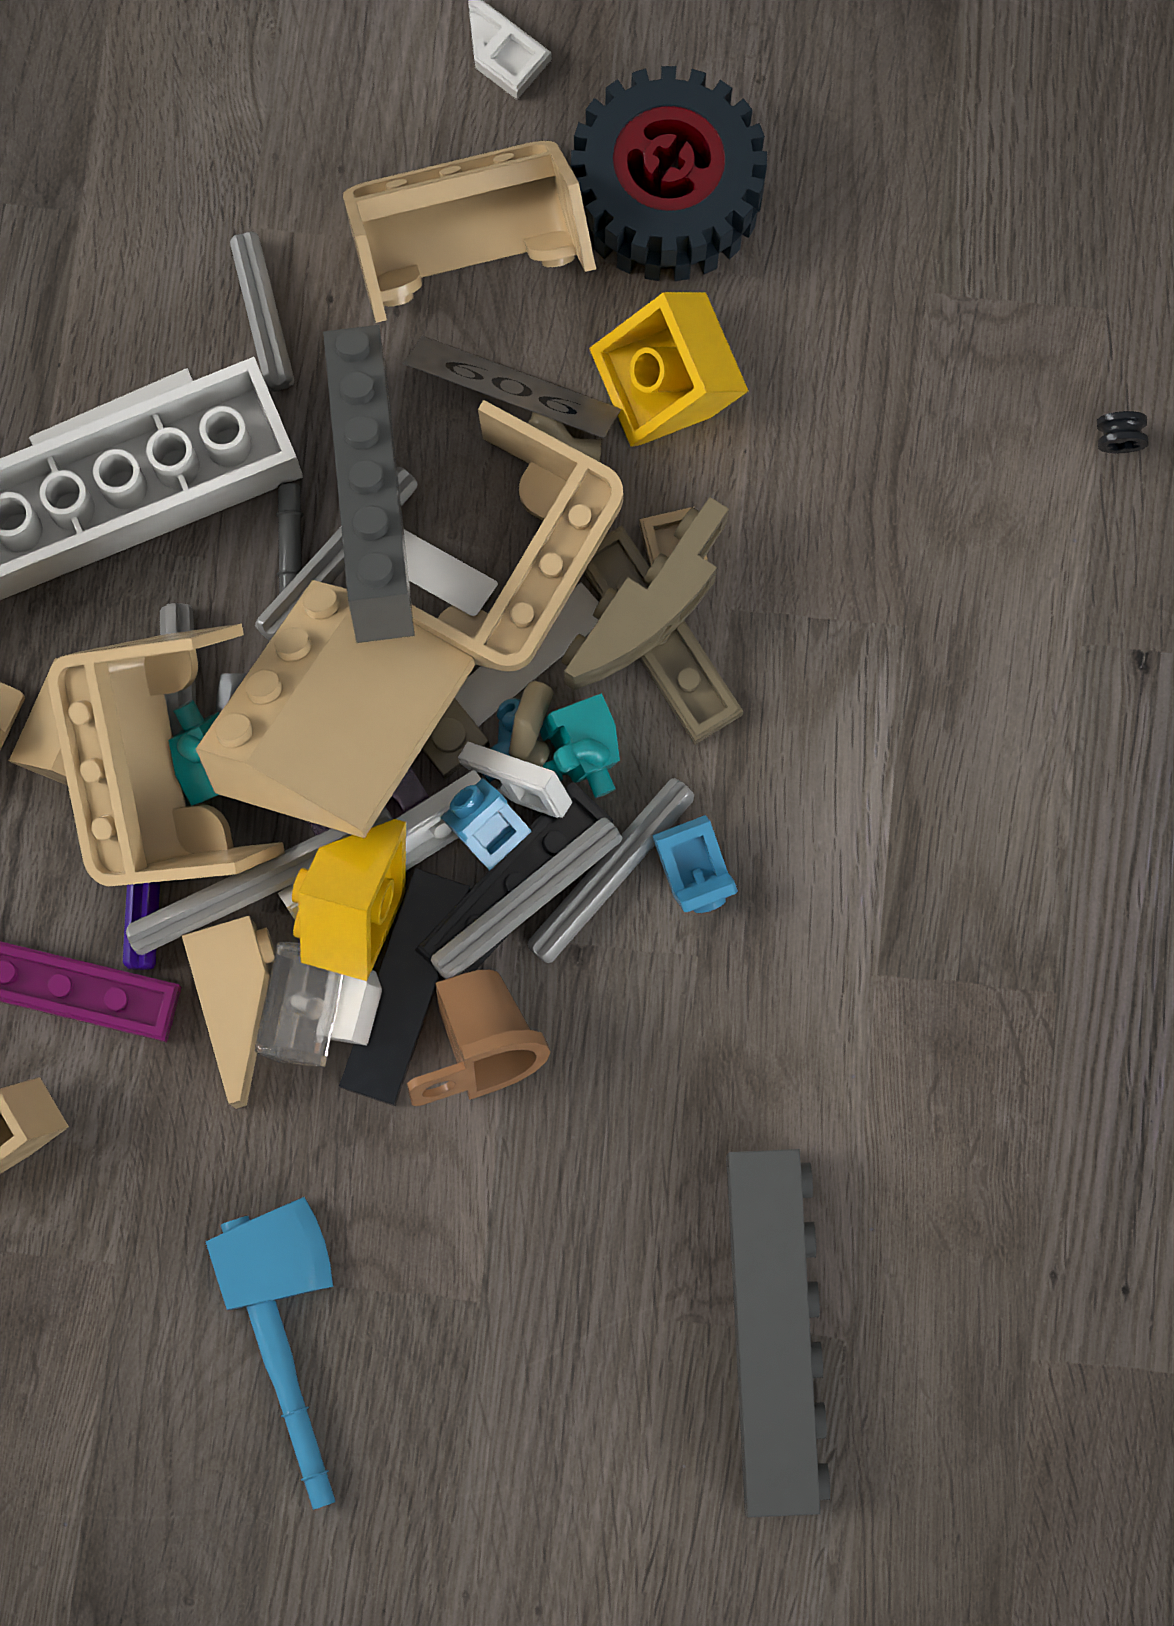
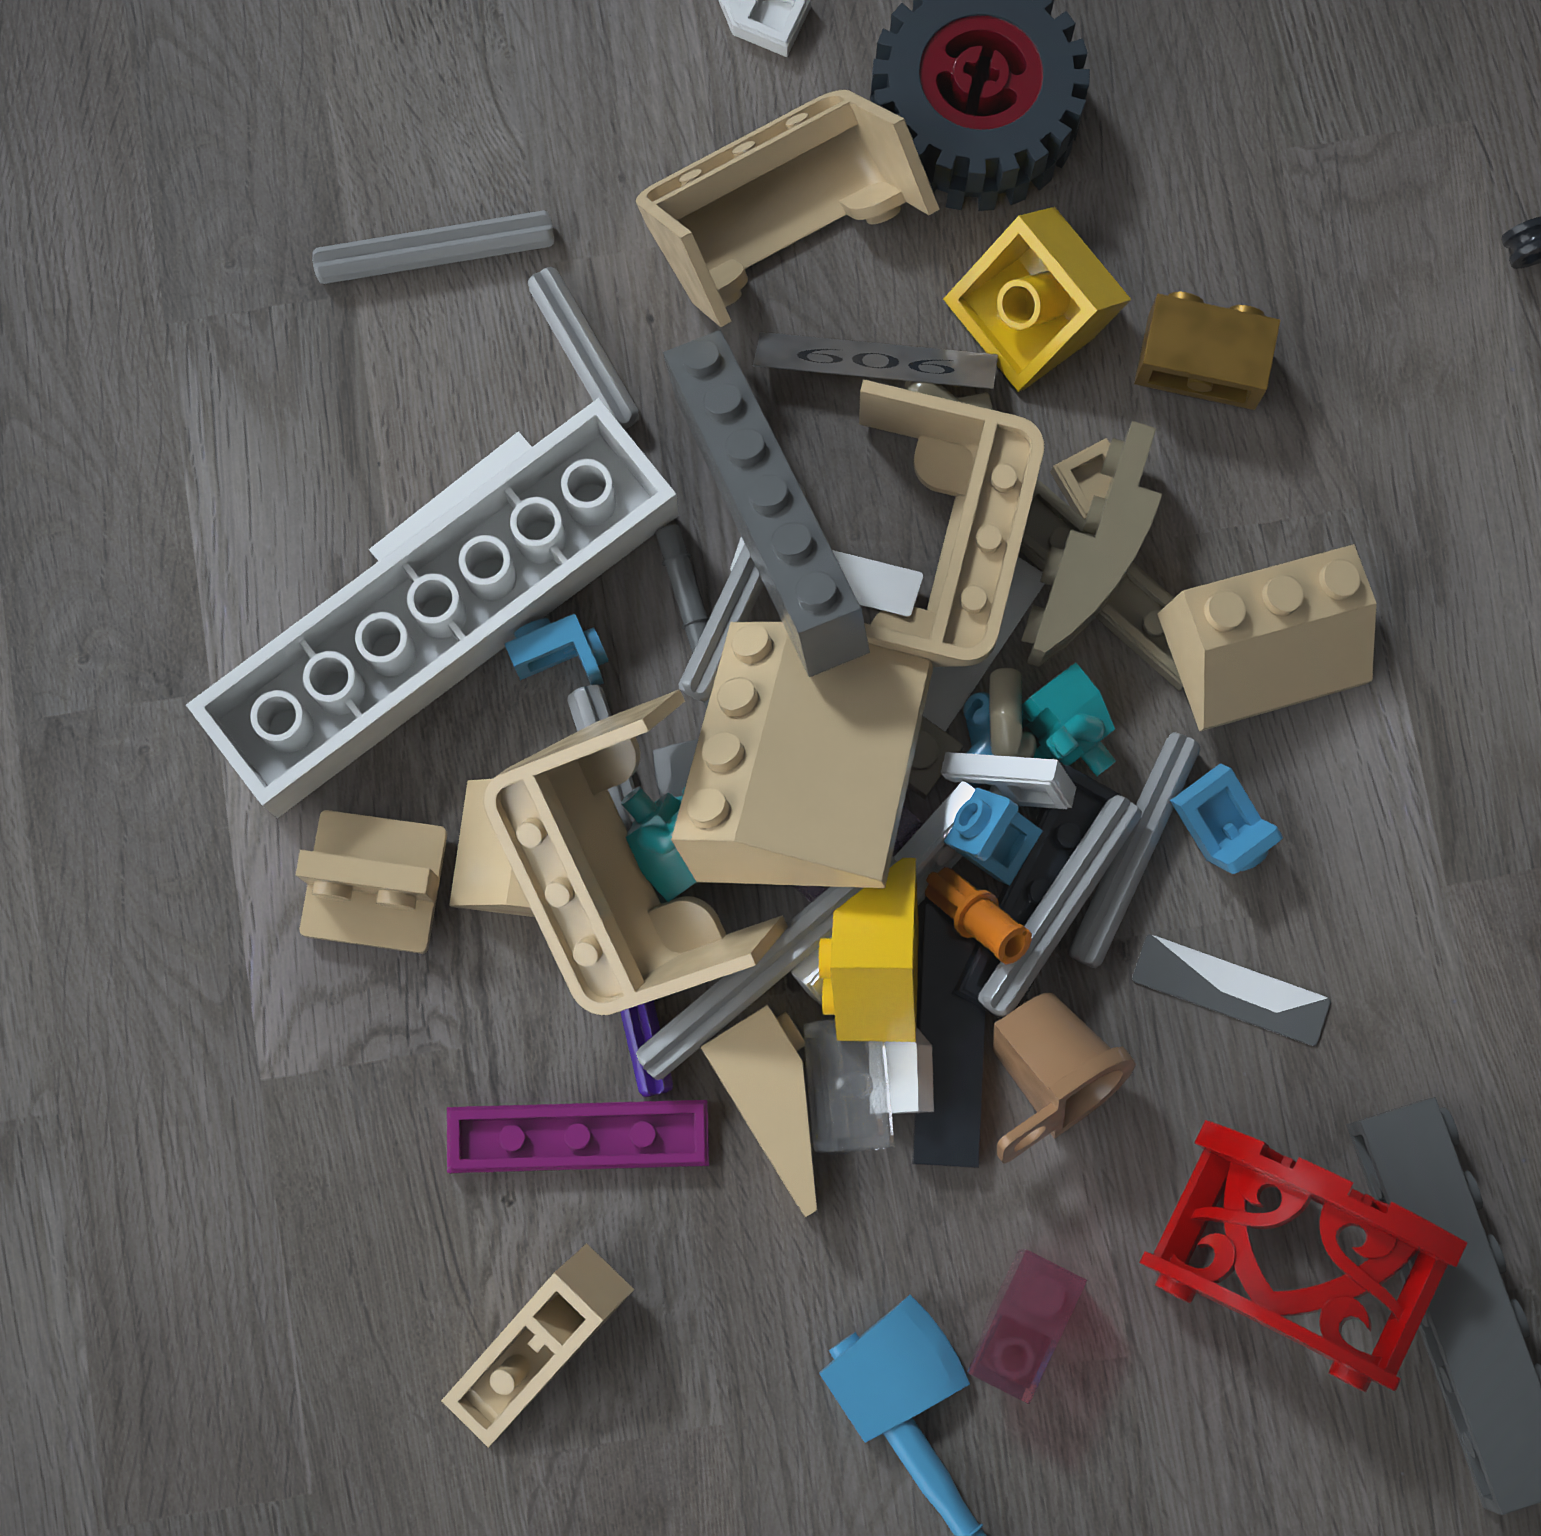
camera: 15 degrees left, 0 degrees up
(154, 559) = (548, 644): none -> dark azure bracket
(158, 188) = (433, 247): none -> light grey axle
(390, 1247) = (1025, 1324): none -> clear pink slope
(452, 888) = (978, 915): none -> orange axle
(609, 1169) = (1392, 1238): none -> red fence
(661, 1014) = (1231, 990): none -> dark grey sticker
(782, 717) = (1273, 636): none -> tan slope
(801, 452) = (1207, 350): none -> pearl gold brick

